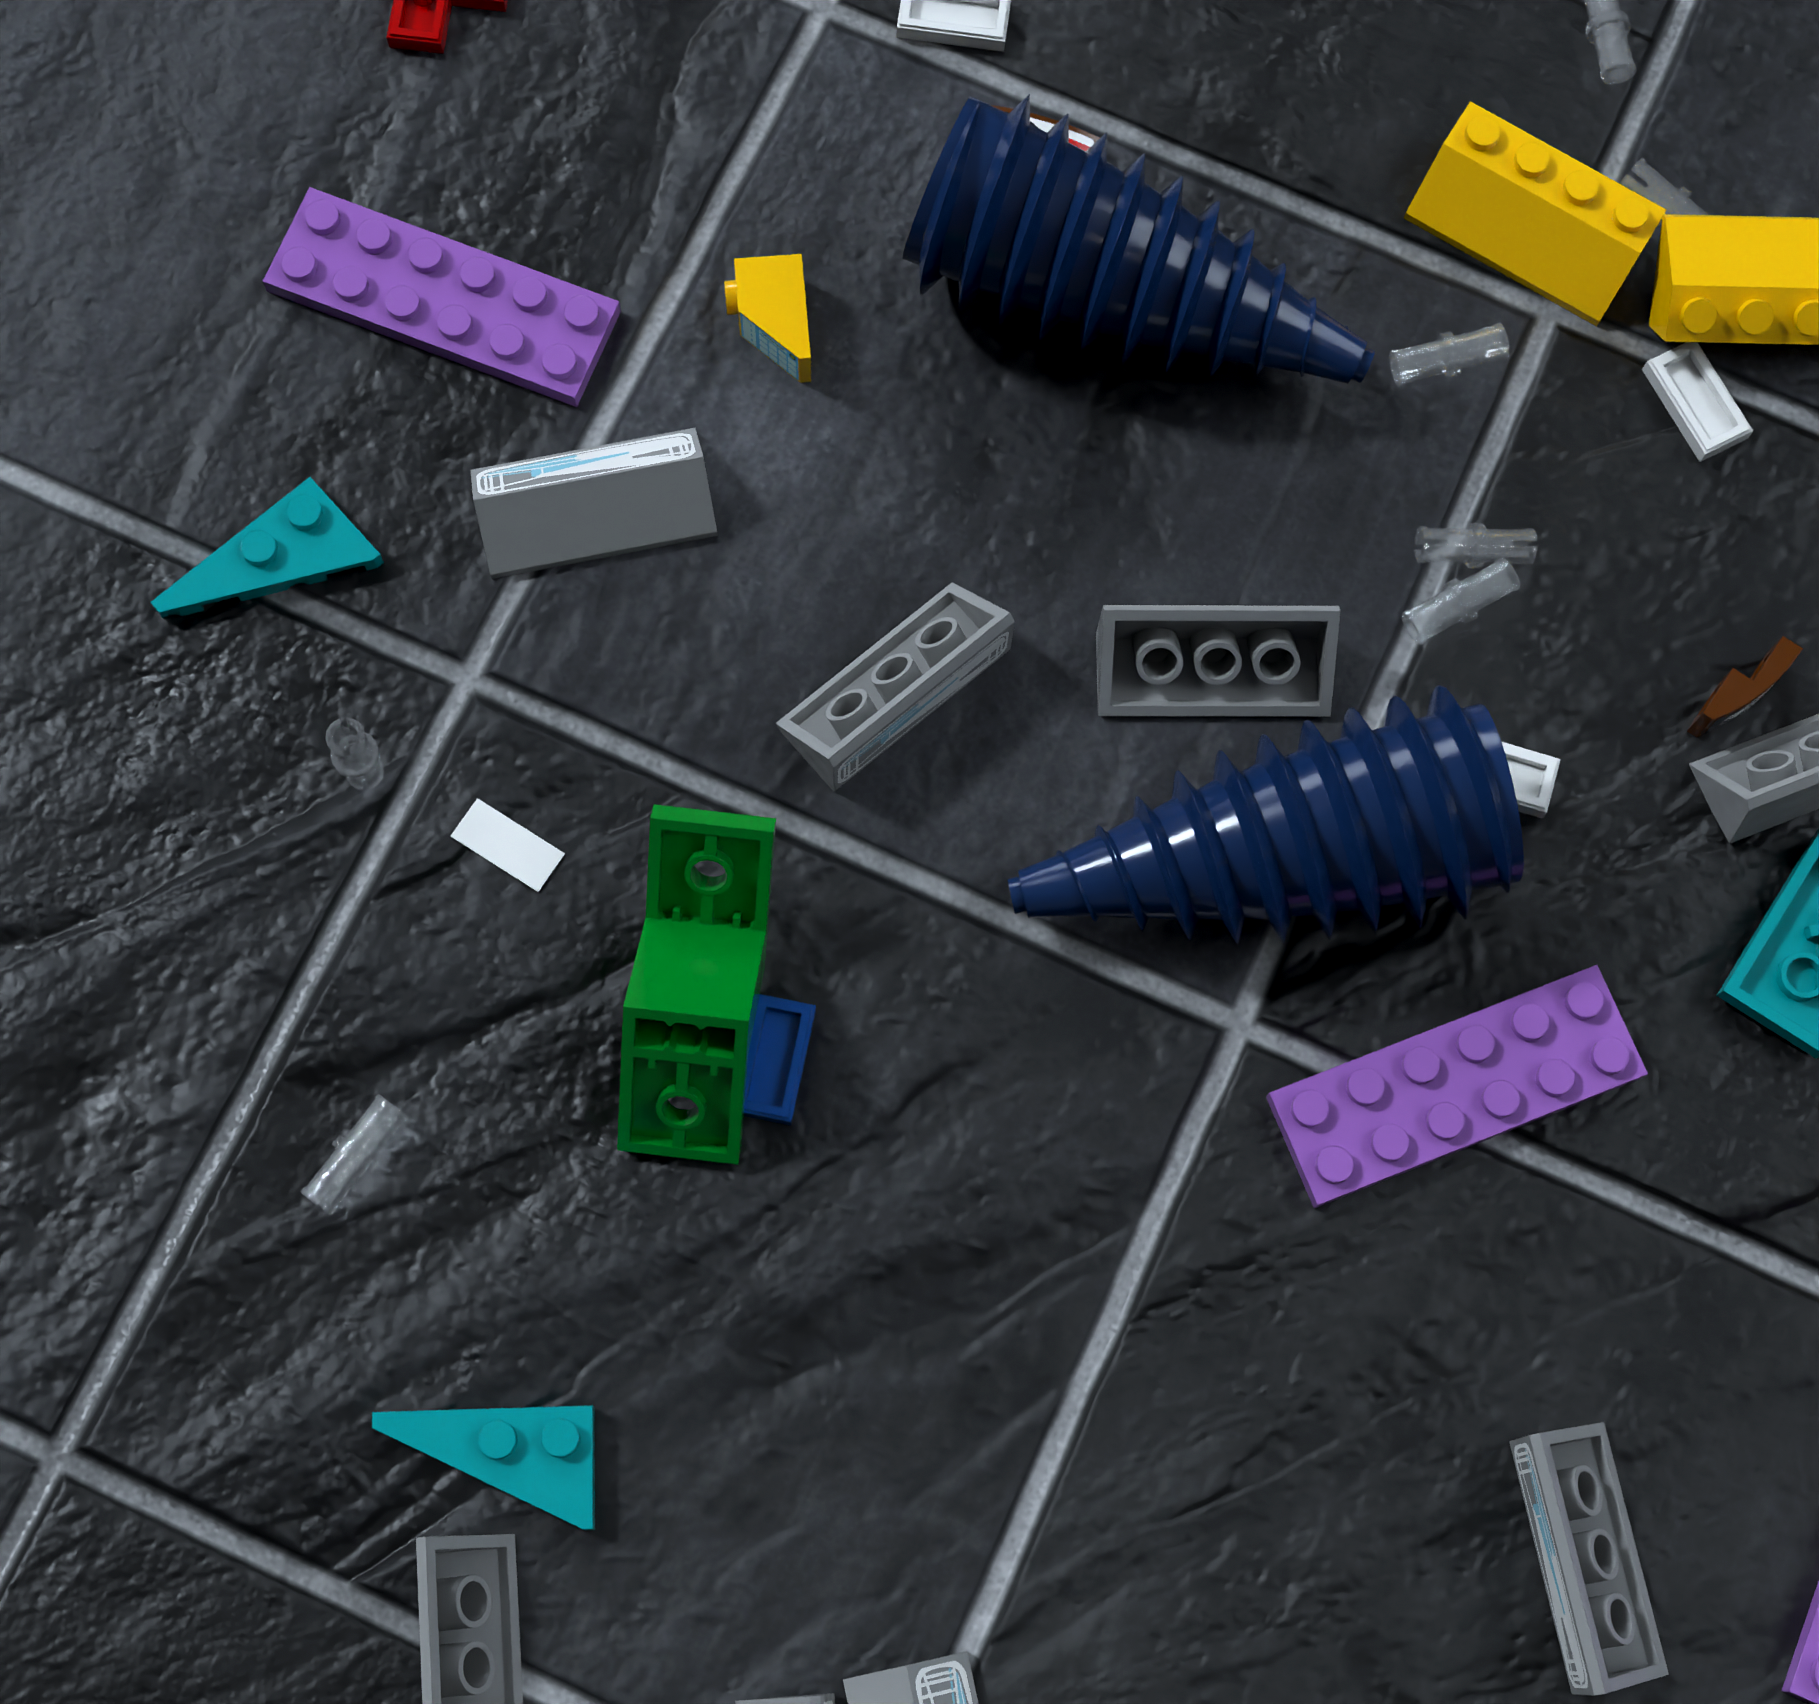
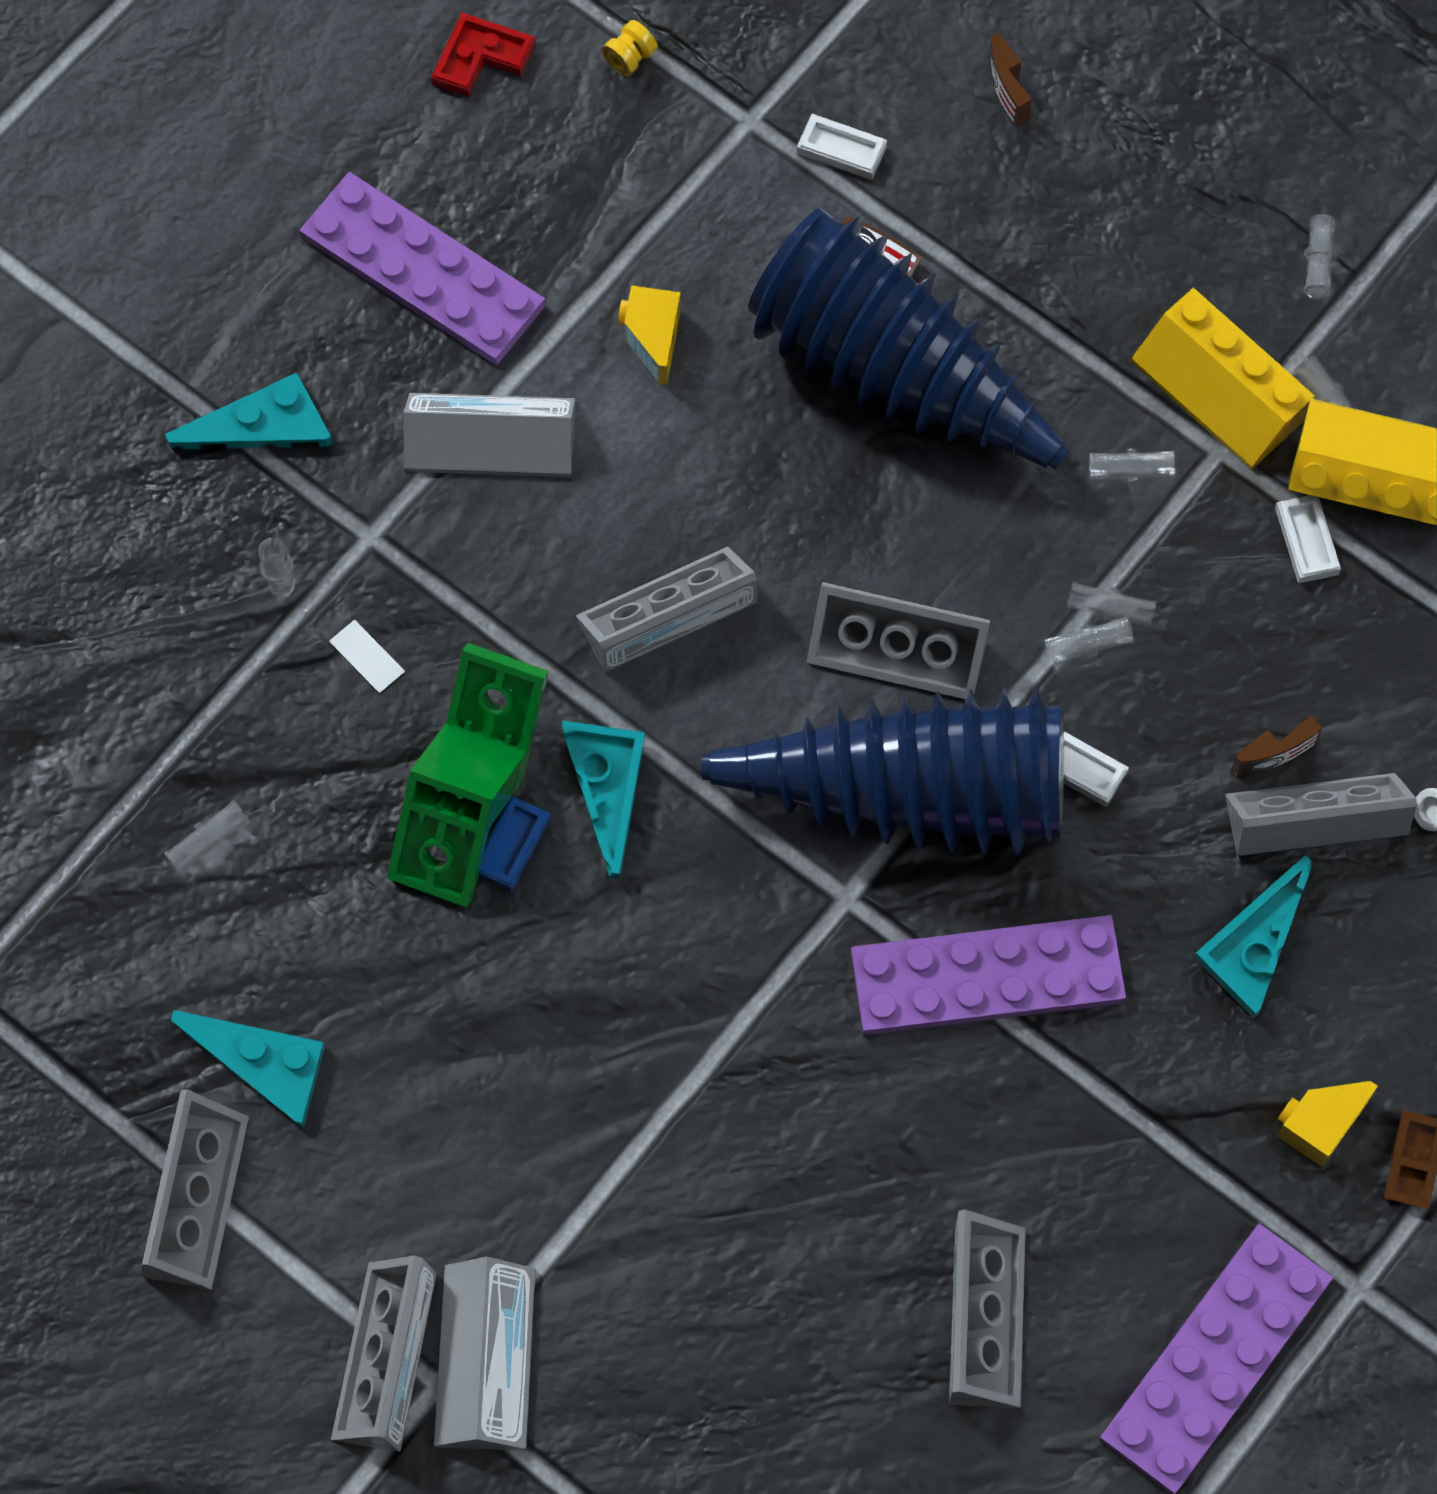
camera: 20 degrees right, 5 degrees down
(879, 932) = (608, 774): none -> teal wing

